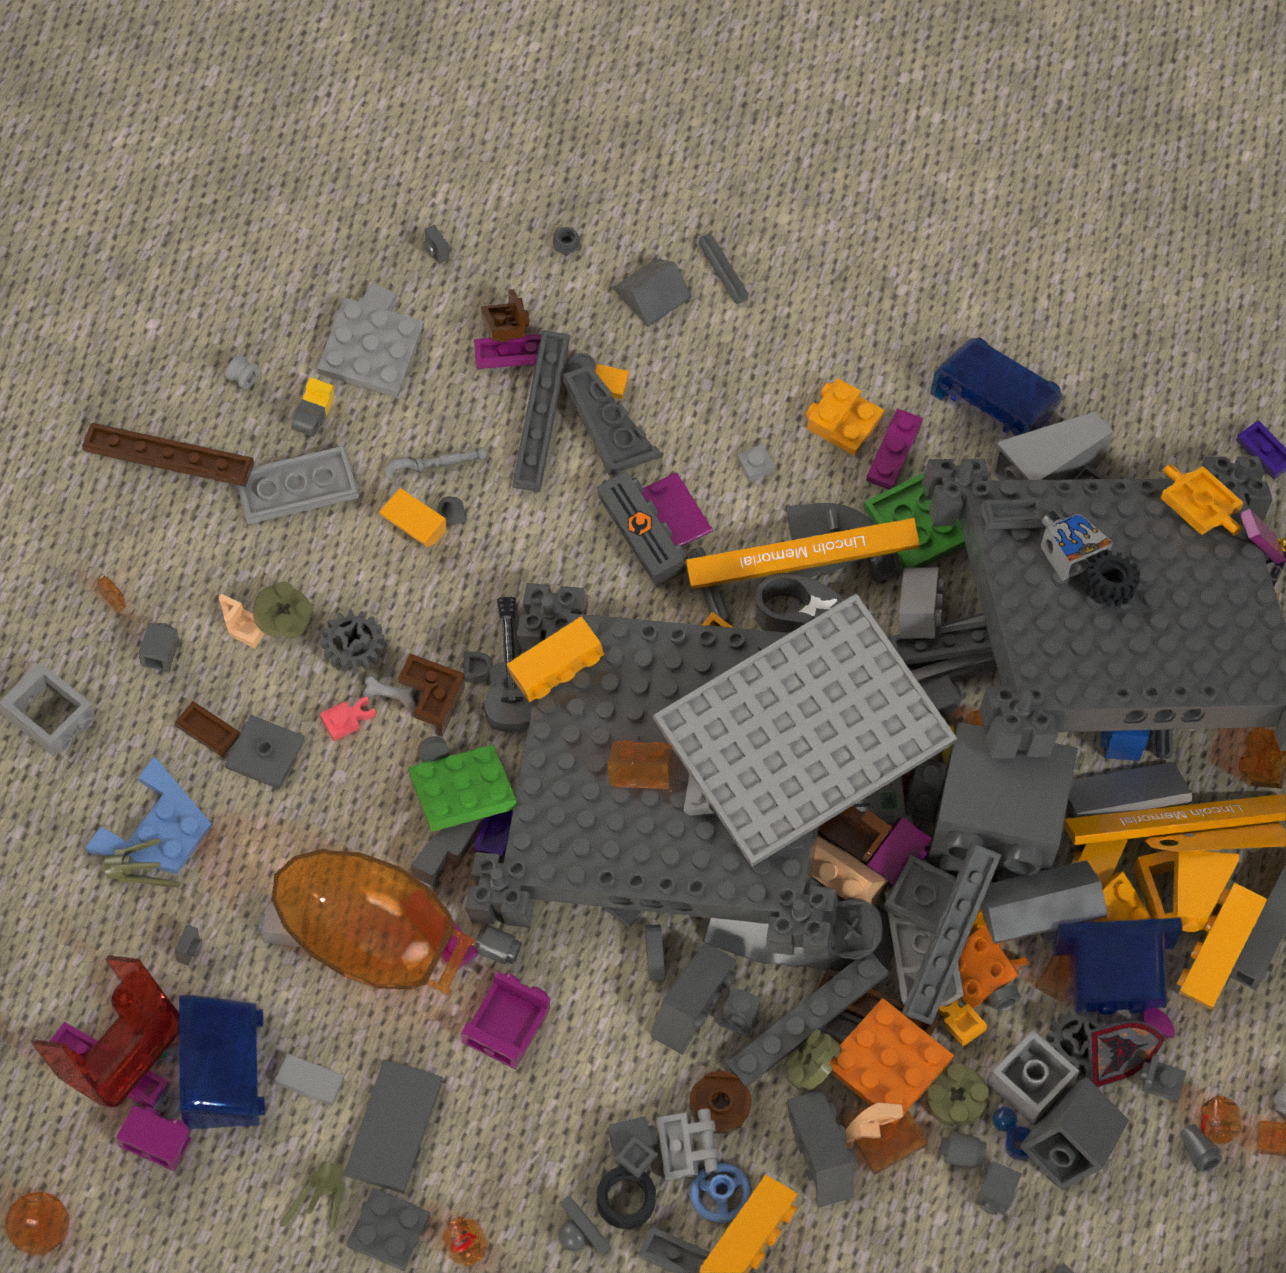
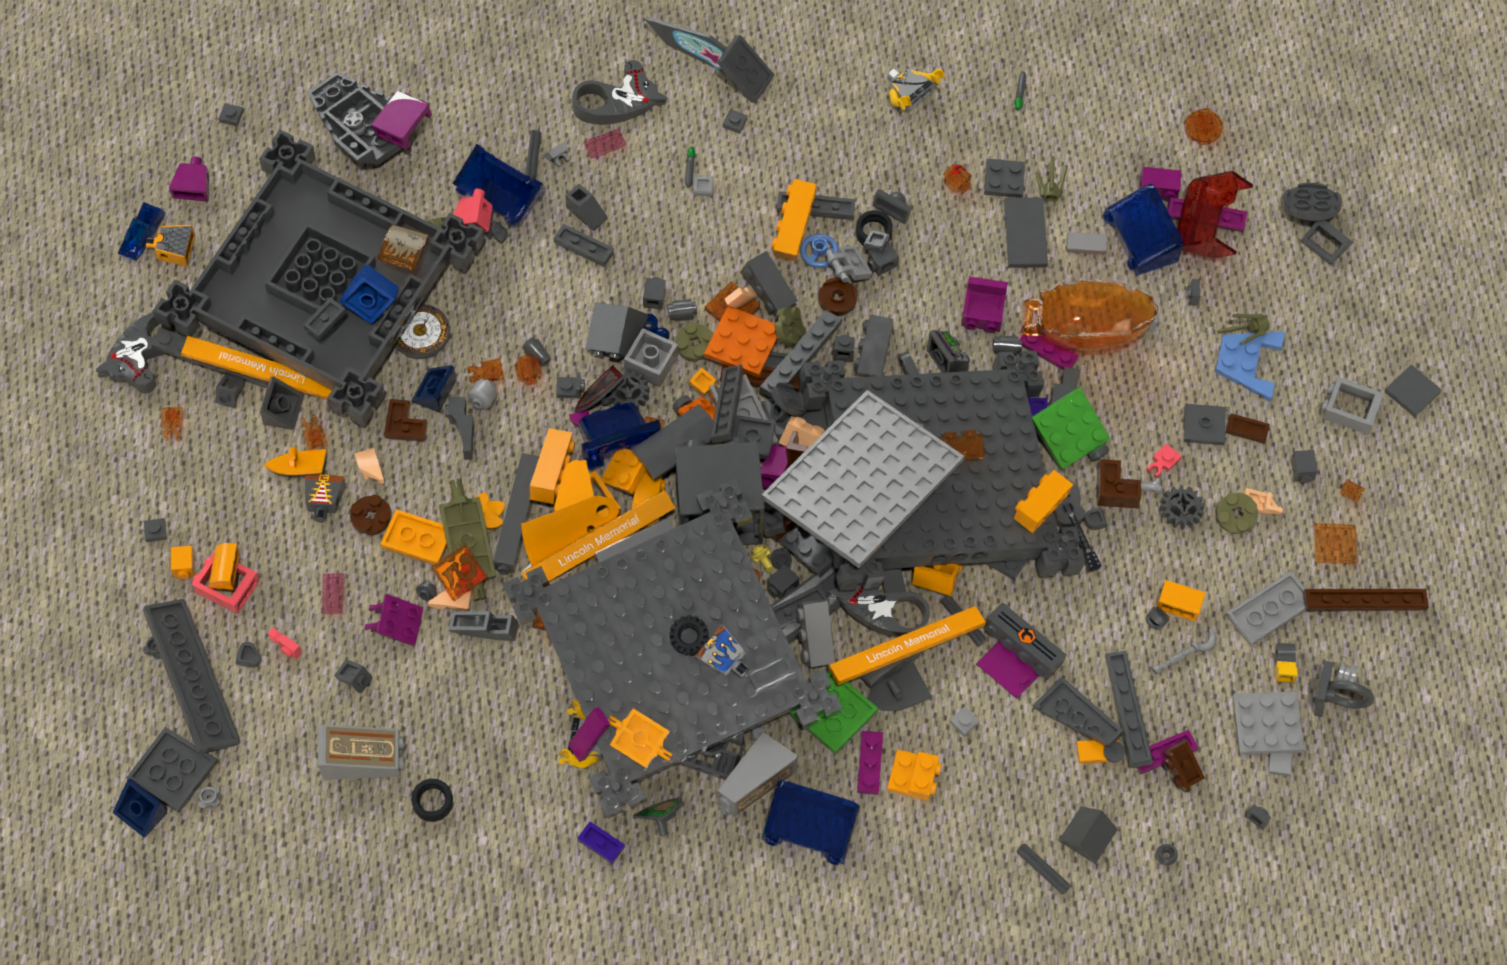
camera: 165 degrees right, 0 degrees up
(168, 540) = (1335, 543): none -> clear orange tile
(282, 347) = (1328, 688): none -> dark grey tile
(591, 951) = (946, 352): none -> dark grey slope
(1183, 450) = (661, 813): none -> shield

